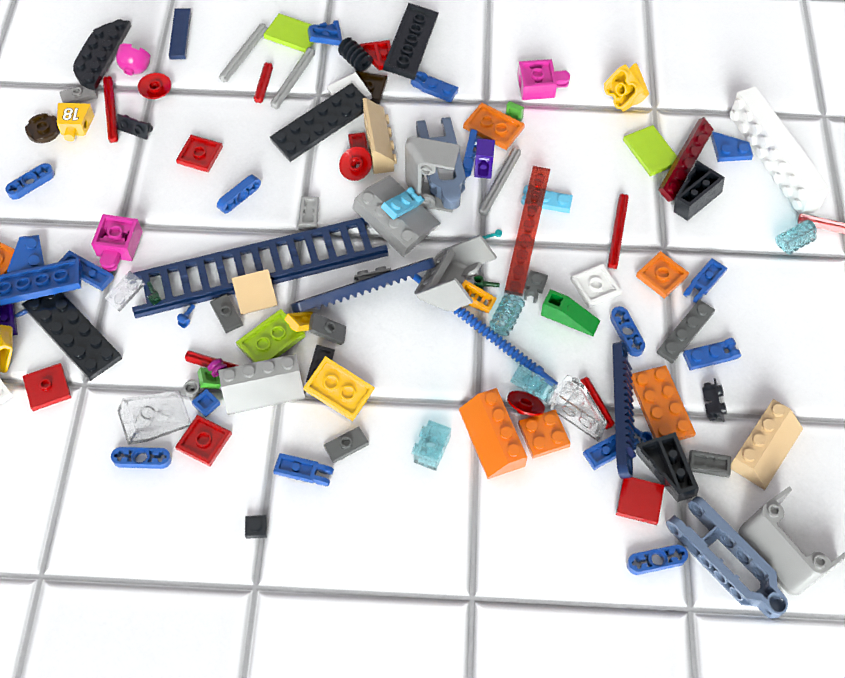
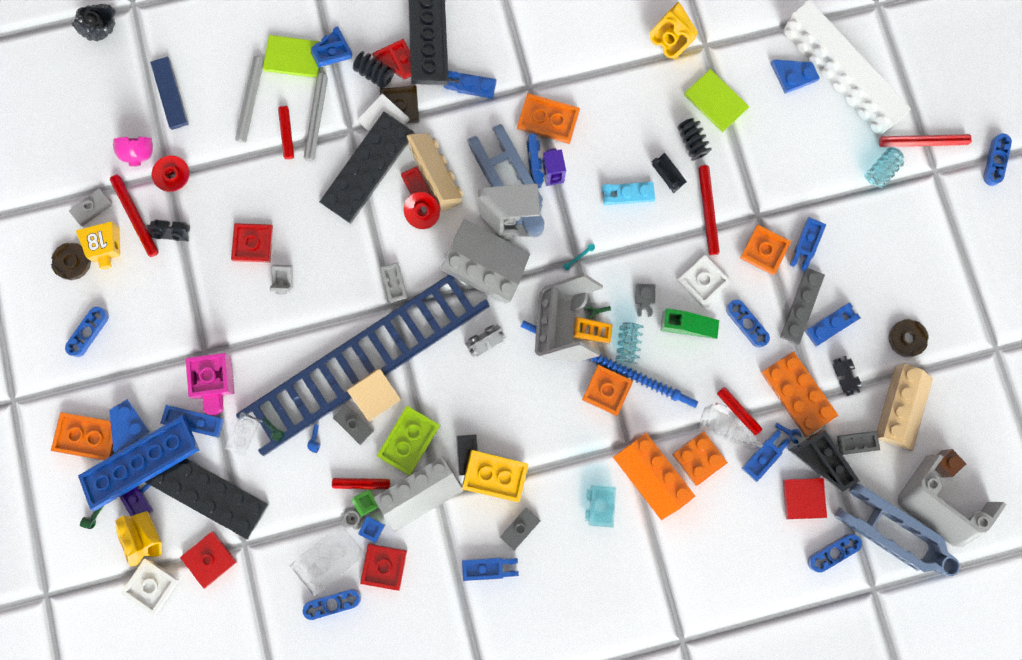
camera: 20 degrees left, 20 degrees up
(99, 52) = (90, 146): black plate -> none
(213, 183) = (282, 279): none -> light grey bracket
(216, 365) = (370, 492): magenta bush -> none
(238, 194) = (313, 282): blue beam -> none
(256, 526) = (466, 637): black plate -> none
(299, 321) = (435, 414): yellow plate -> none
(327, 328) = (461, 415): dark grey plate -> none
(360, 286) = (481, 356): dark blue gear -> none
(402, 203) = (490, 253): medium azure plate -> none
(472, 349) = (607, 390): none -> orange plate
(499, 181) = (574, 185): light grey axle -> none
(514, 111) = (565, 94): bright green tile -> none
(525, 403) = (675, 435): red dish -> none
(527, 231) = (622, 240): clear red plate -> none
(533, 384) = (678, 414): clear light blue brick -> none
(545, 76) = (580, 46): dark pink brick -> none
(589, 191) = (668, 172): none -> black hinge
(621, 170) = (693, 139): none -> black piece
(623, 411) = (769, 417): dark blue gear -> none
(685, 159) = (754, 103): dark red plate -> none
(698, 190) = (777, 139): black wedge -> none
(784, 396) = (898, 341): none -> dark brown tile
(798, 506) = (950, 463): none -> reddish brown brick

